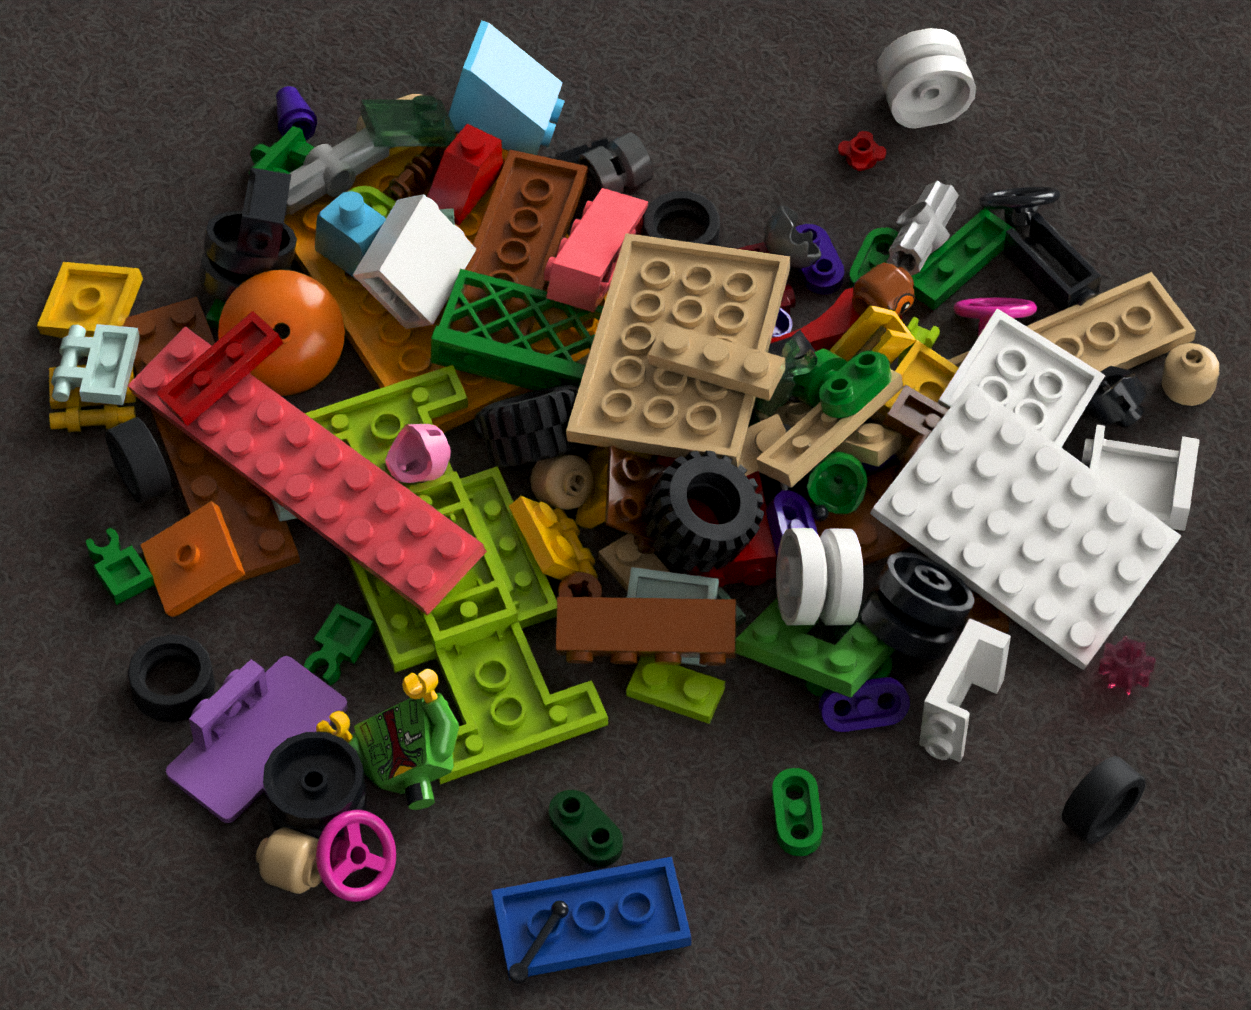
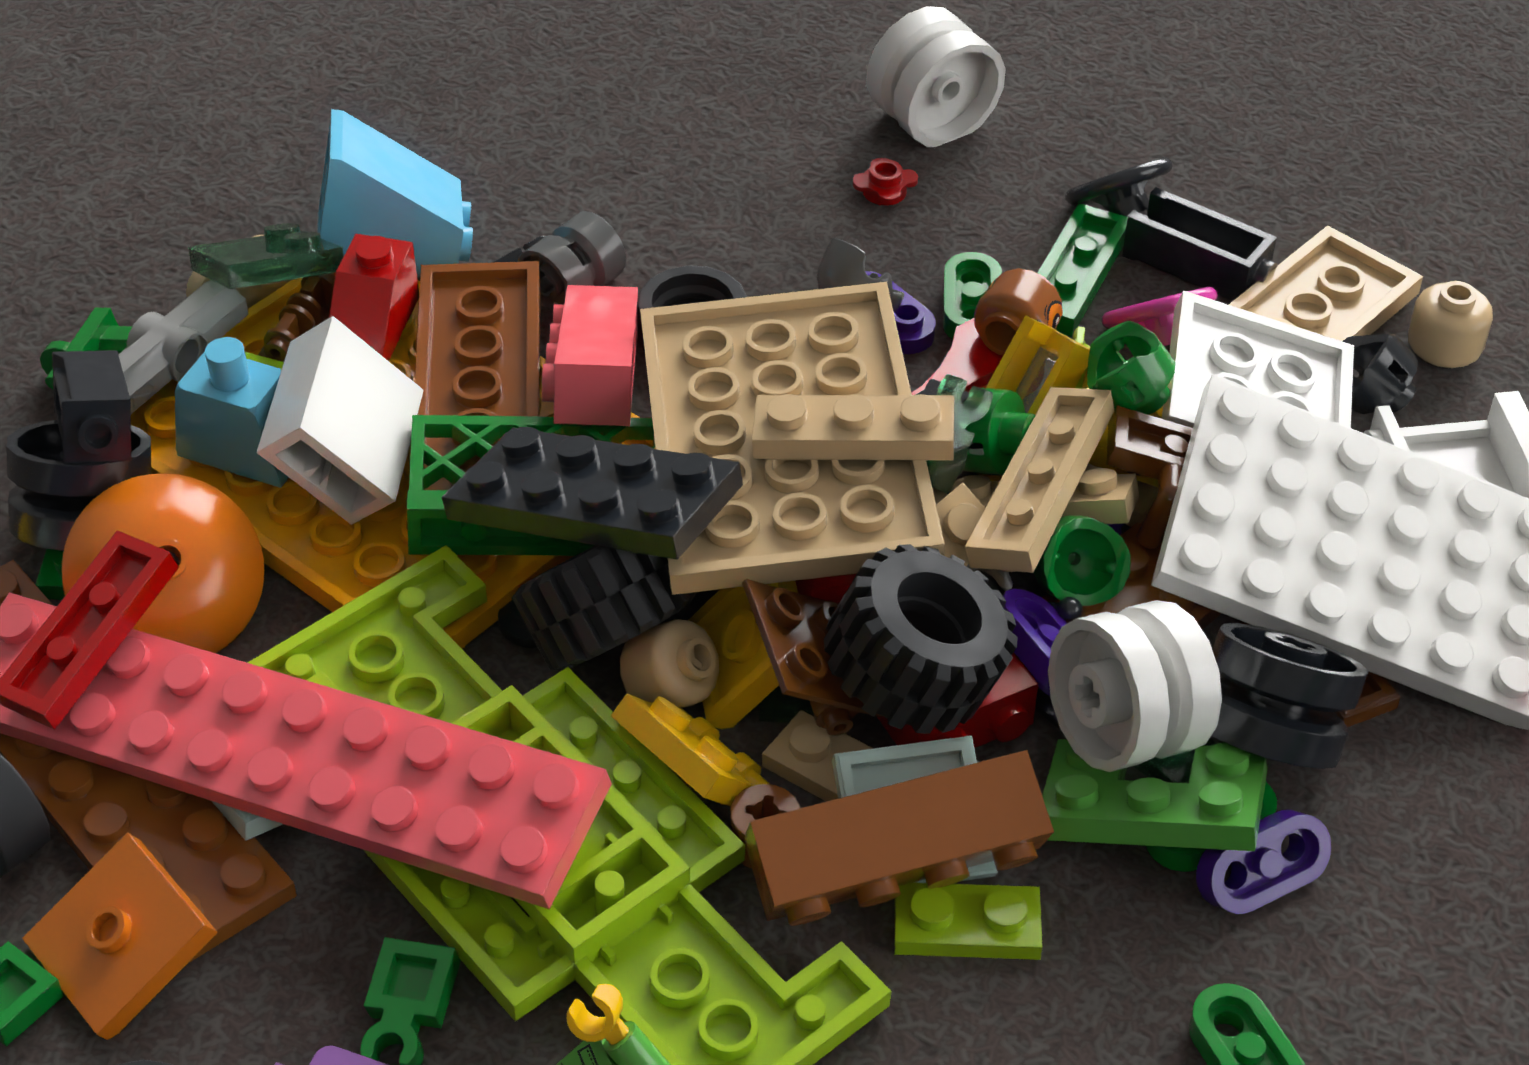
camera: 20 degrees left, 10 degrees down
(295, 112) = (83, 293): dark purple cone -> none
(421, 451) = (447, 671): bright pink piece -> none
(541, 361) = (594, 492): none -> black plate
(855, 384) = (1057, 416): green plate -> none
(923, 227) = (1016, 231): light grey piece -> none
(923, 367) = (1135, 382): none -> green piece
(975, 659) = (1403, 844): white panel -> none

